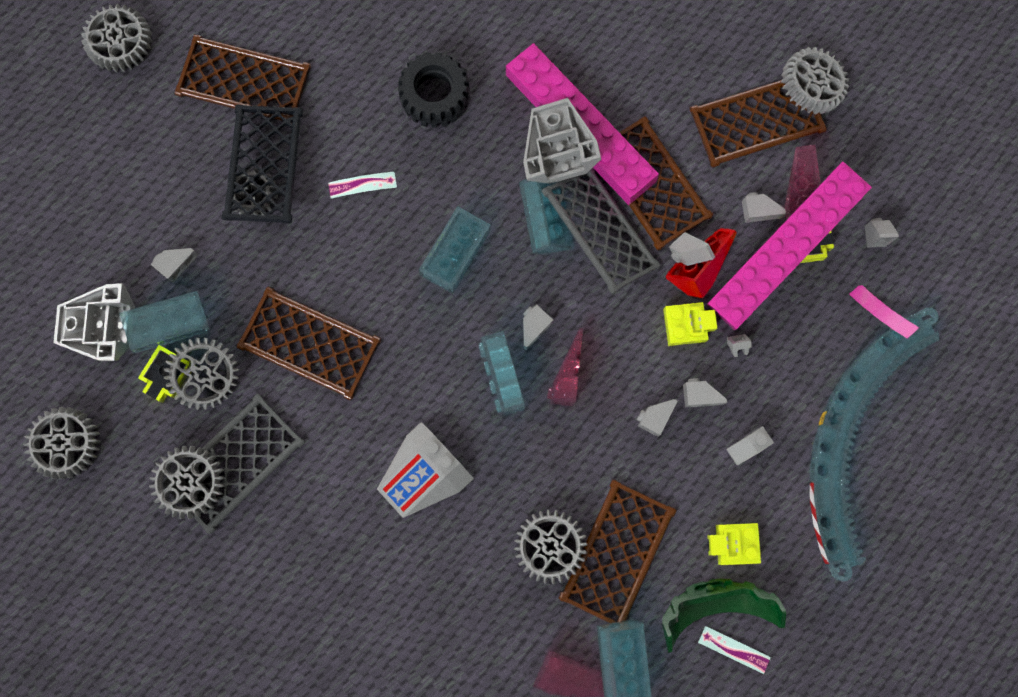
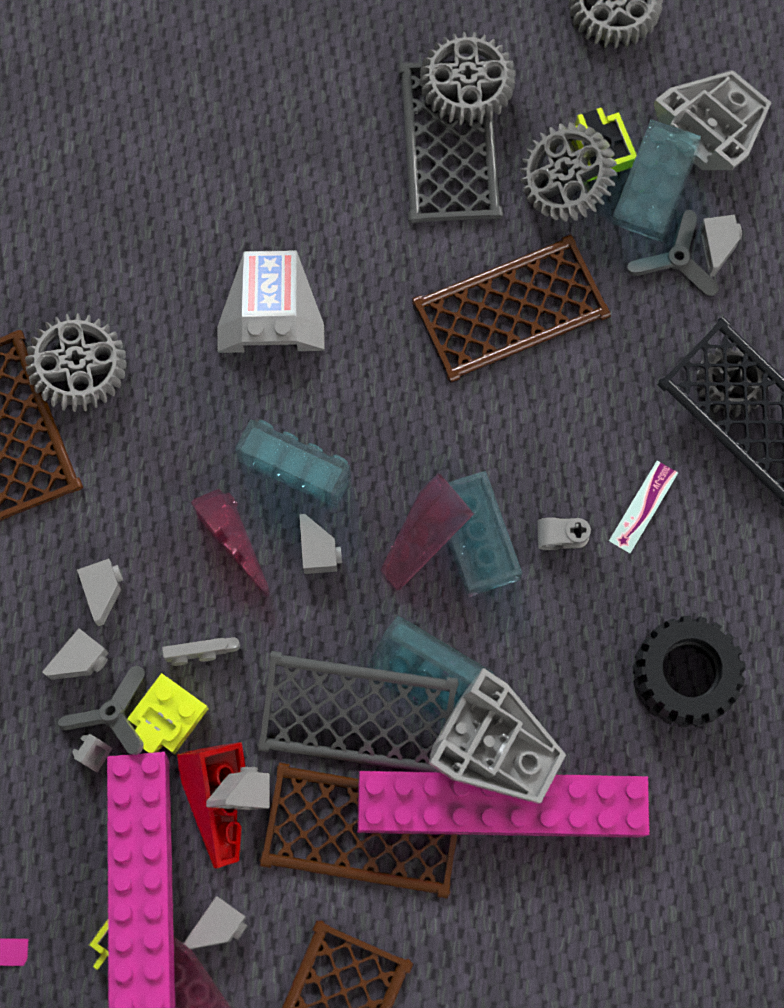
camera: 135 degrees right, 5 degrees down
(208, 283) = (680, 247): none -> dark grey piece
(417, 212) = (559, 533): none -> light grey piece
(475, 274) = (429, 525): none -> clear pink wedge
(638, 334) = (203, 650): none -> light grey hinge
(713, 342) = (118, 720): none -> dark grey piece

